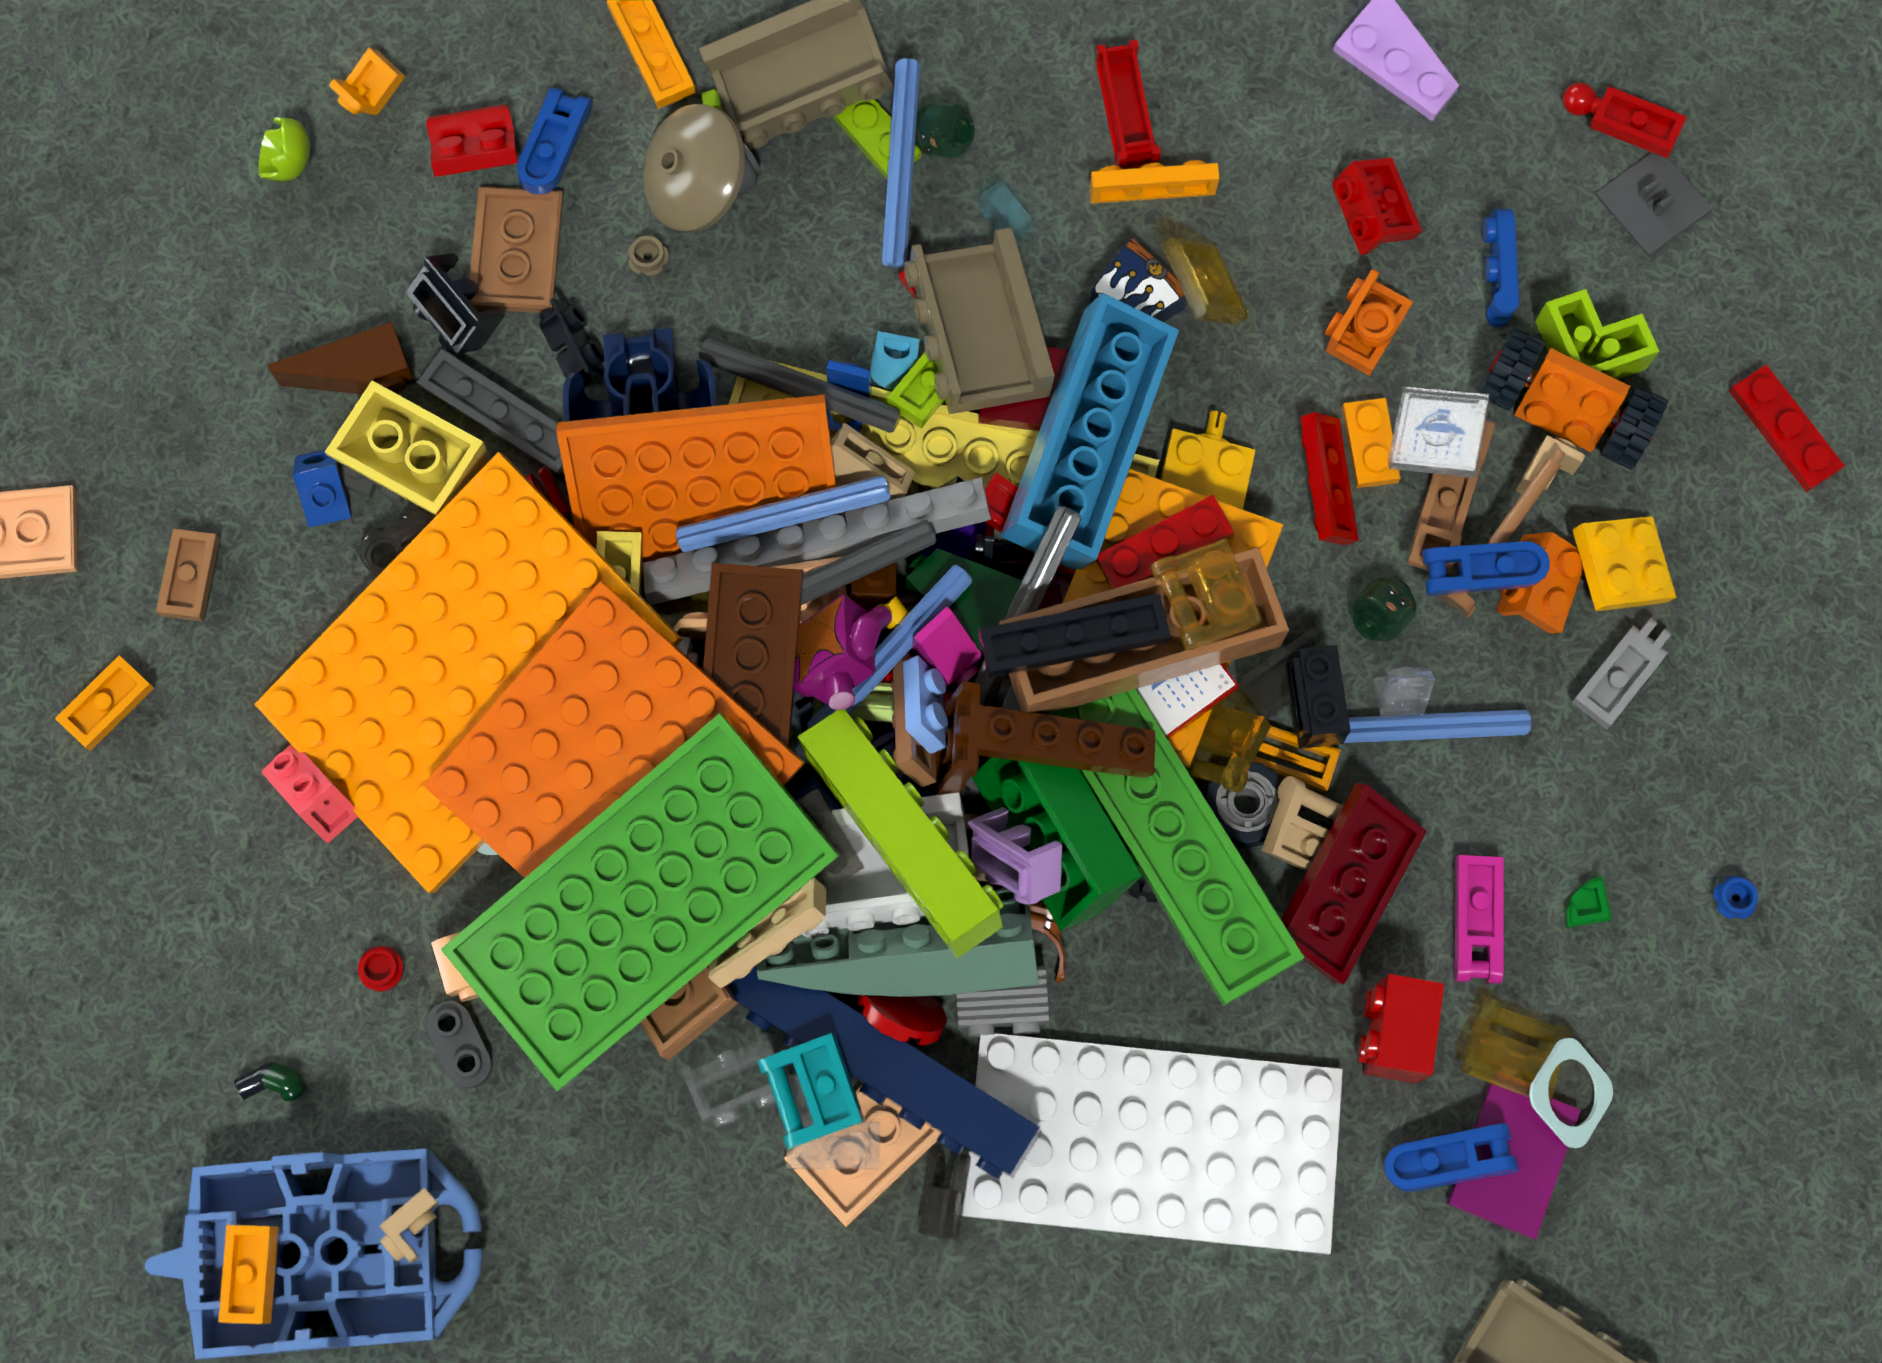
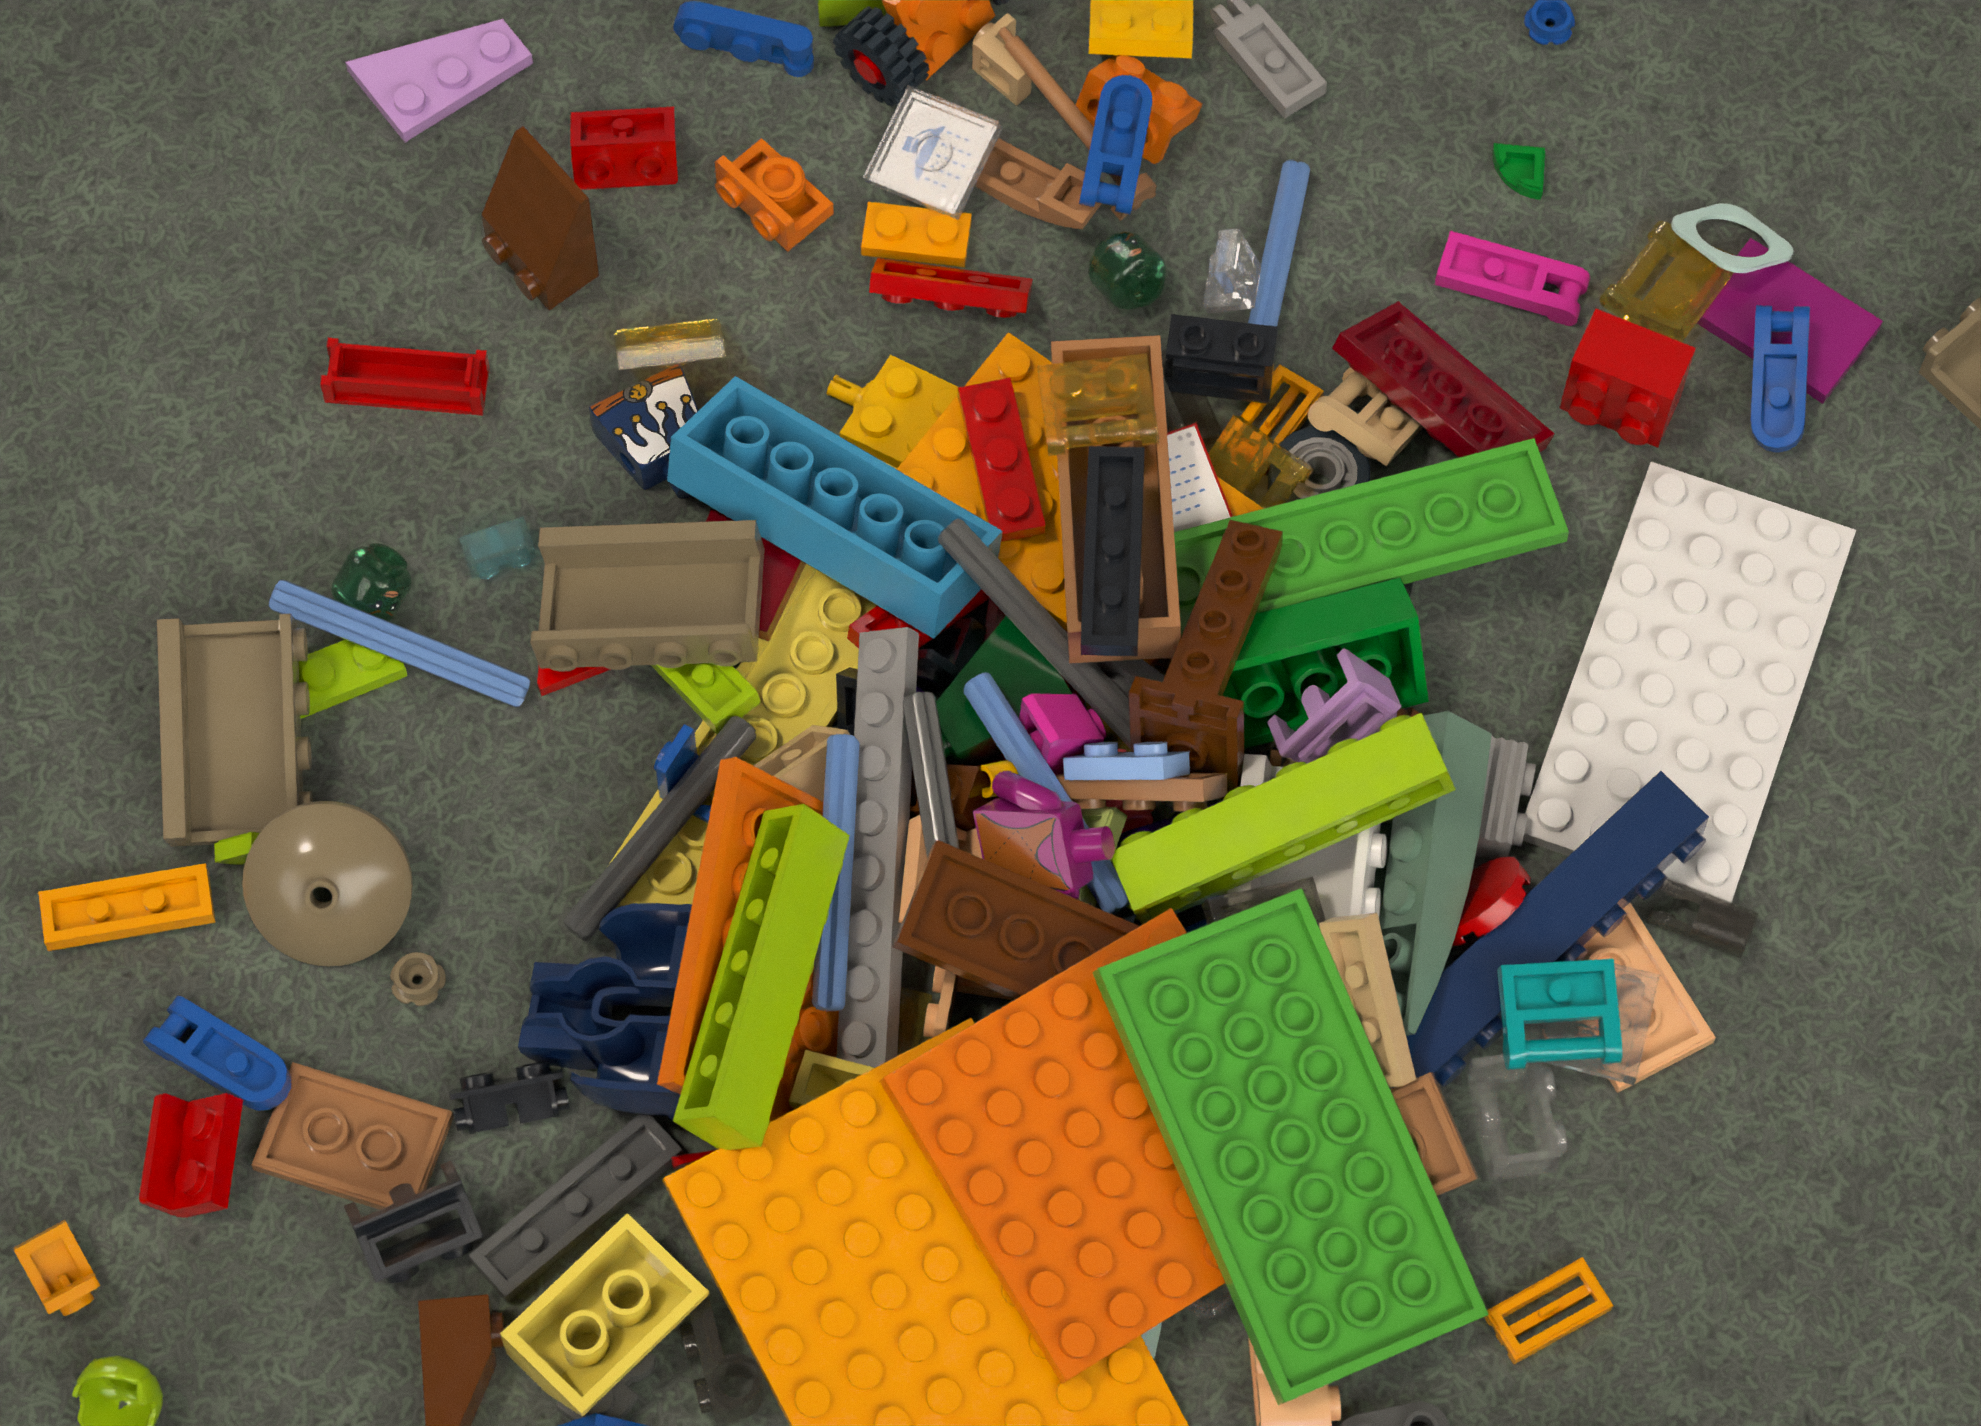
camera: 75 degrees left, 10 degrees down
(616, 1170) = (1507, 1334): none -> light orange tile
(662, 475) = (762, 978): none -> lime brick
(891, 366) = (653, 716): medium azure plate -> none
(1154, 182) = (516, 372): light orange plate -> none
(1272, 158) = (539, 224): none -> reddish brown slope

